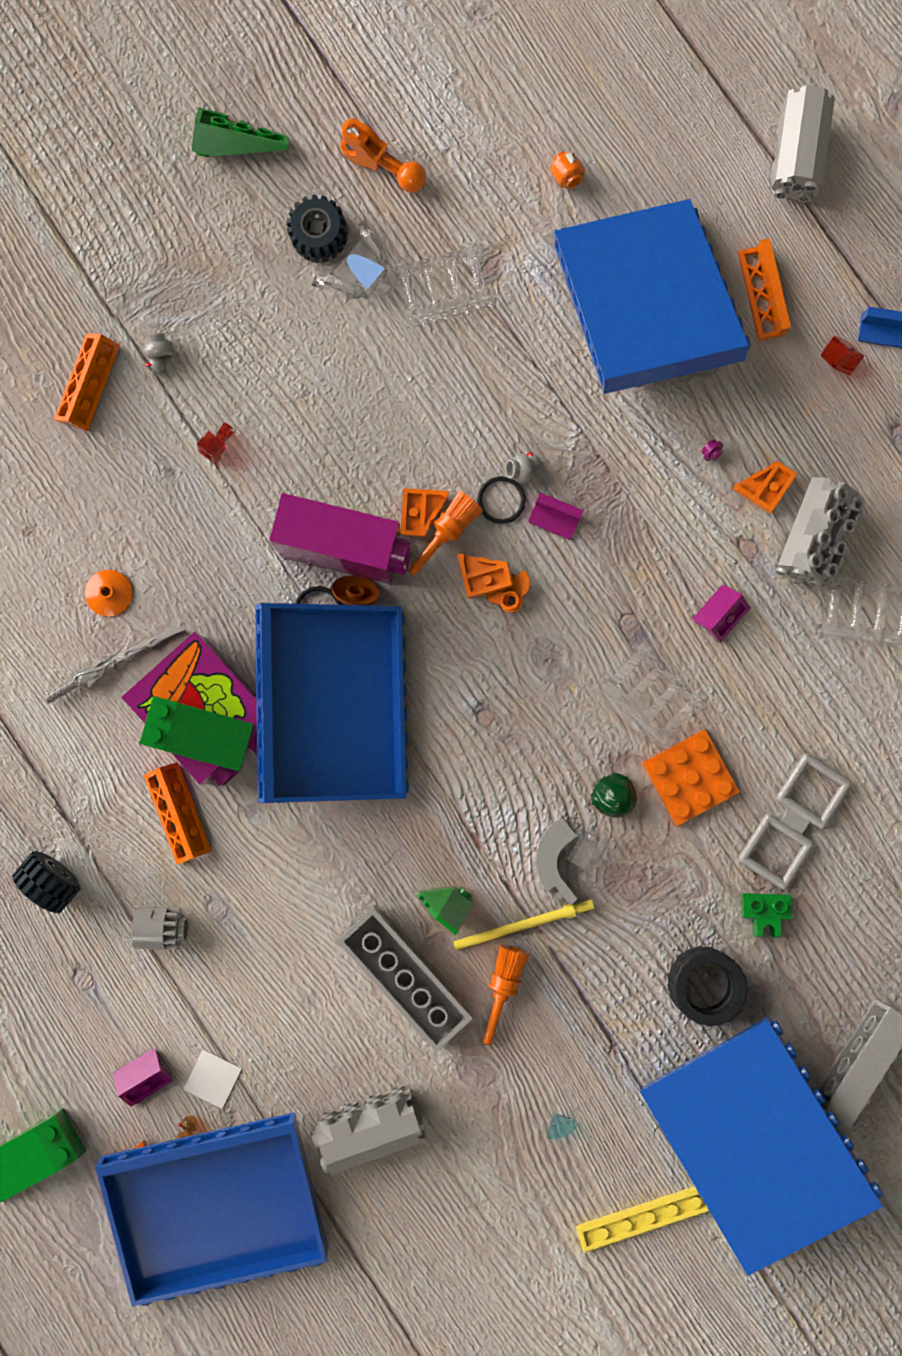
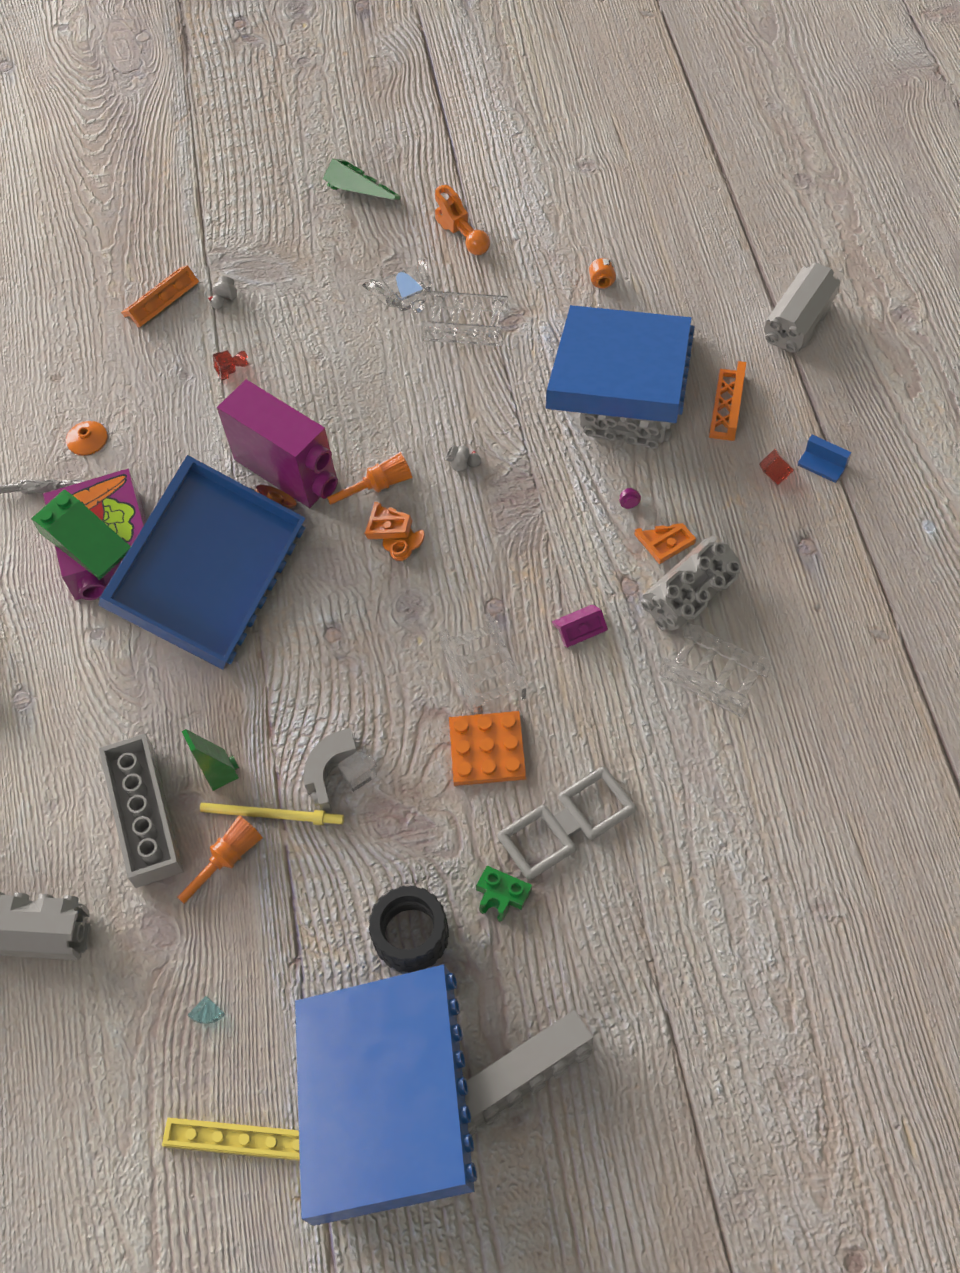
camera: 30 degrees right, 25 degrees down
(180, 811) = (36, 609): orange fence -> none
(317, 228) = (387, 251): black wheel -> none
(420, 510) = (359, 458): orange wing -> none
(522, 503) = (437, 493): black piece -> none
(555, 516) = (472, 502): magenta panel -> none
(614, 795) = (409, 734): dark green hair -> none

